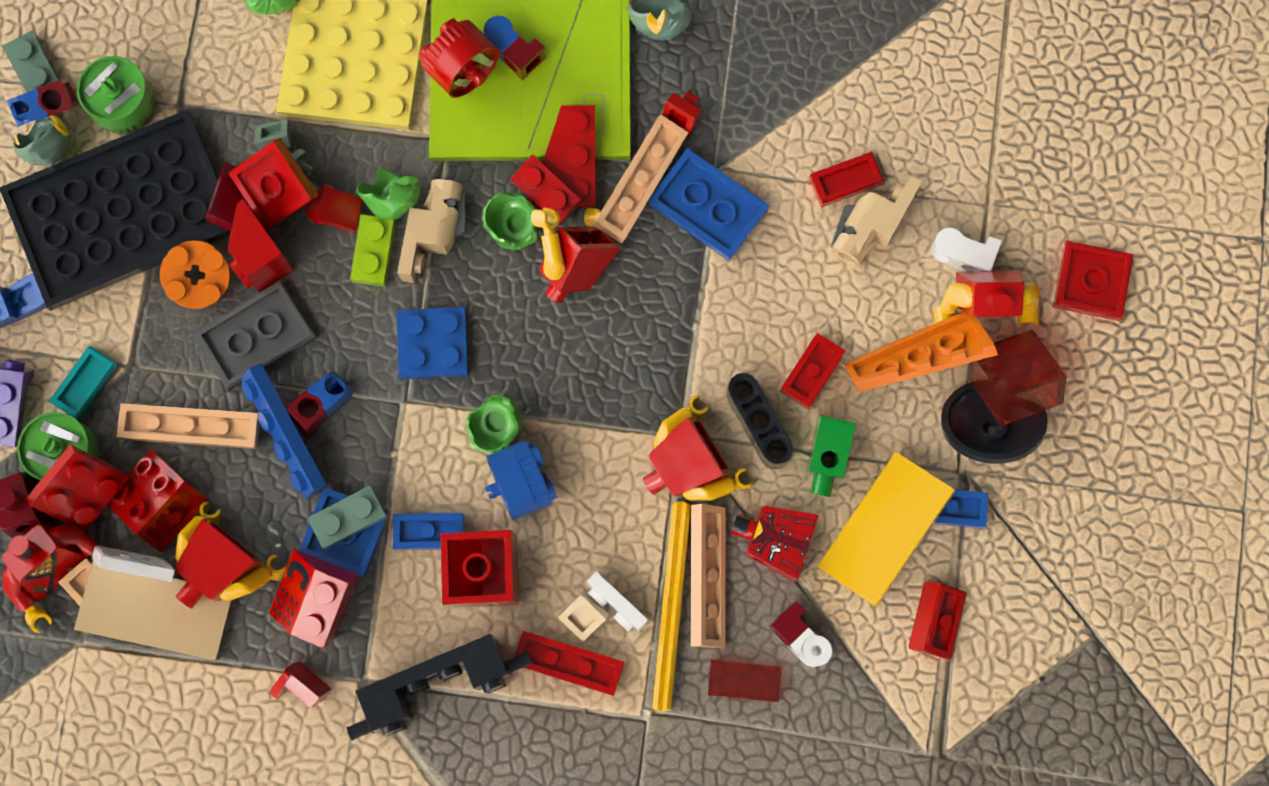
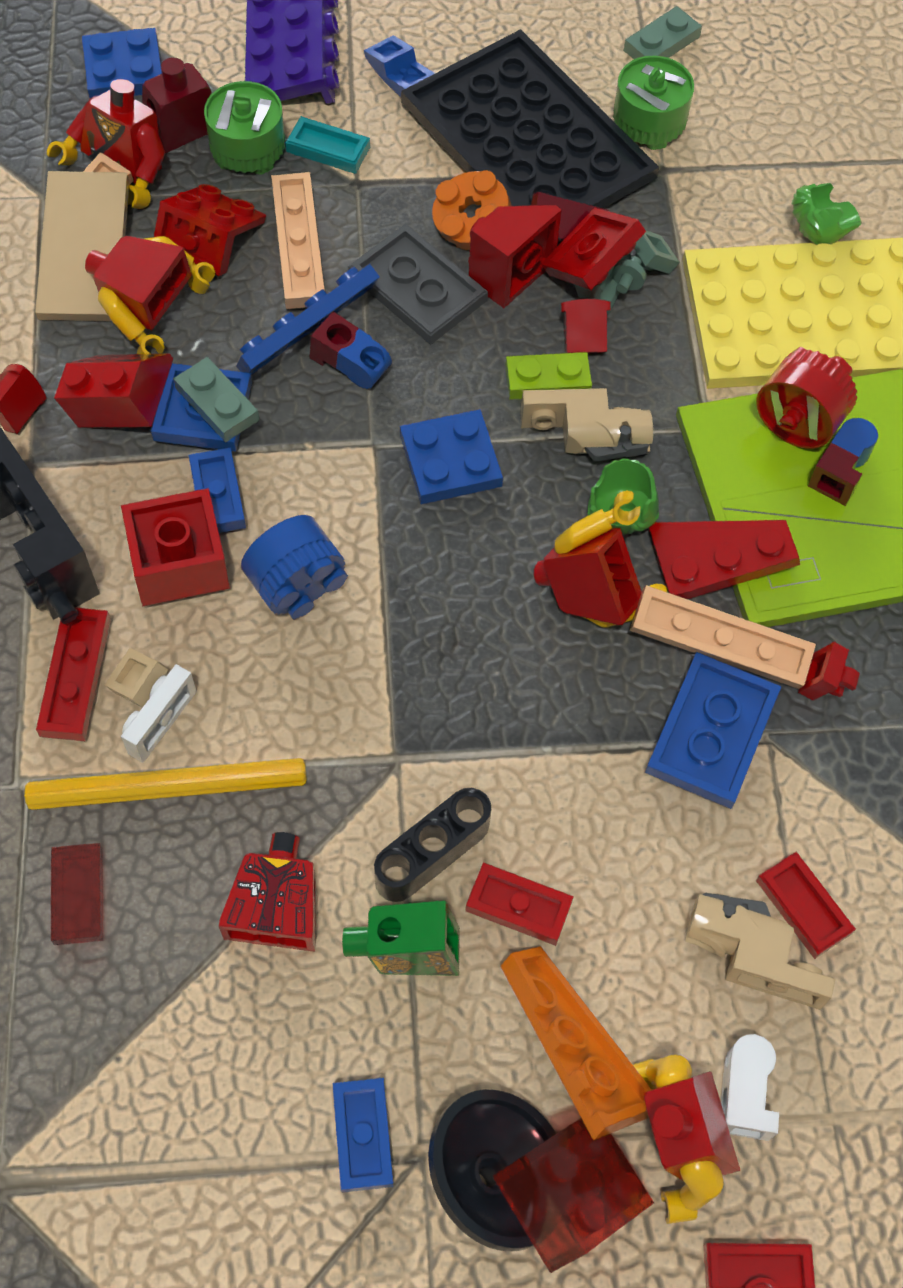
camera: 75 degrees right, 15 degrees down
(43, 101) = (623, 38): leg -> none
(44, 143) = (579, 54): sand green hair -> none
(77, 488) = (203, 141): red plate -> none
(132, 563) = (124, 196): white tile -> none
(390, 194) = (617, 372): bright green hair -> none
(495, 424) = (359, 530): bright green hair -> none
(546, 188) = (673, 531): red plate -> none
(689, 459) = (361, 762): torso -> none
(708, 575) = (208, 818): light nougat plate -> none
(799, 638) = (142, 952): leg -> none
(886, 529) = (313, 1042): yellow tile -> none
(937, 620) = (195, 1148): red slope -> none

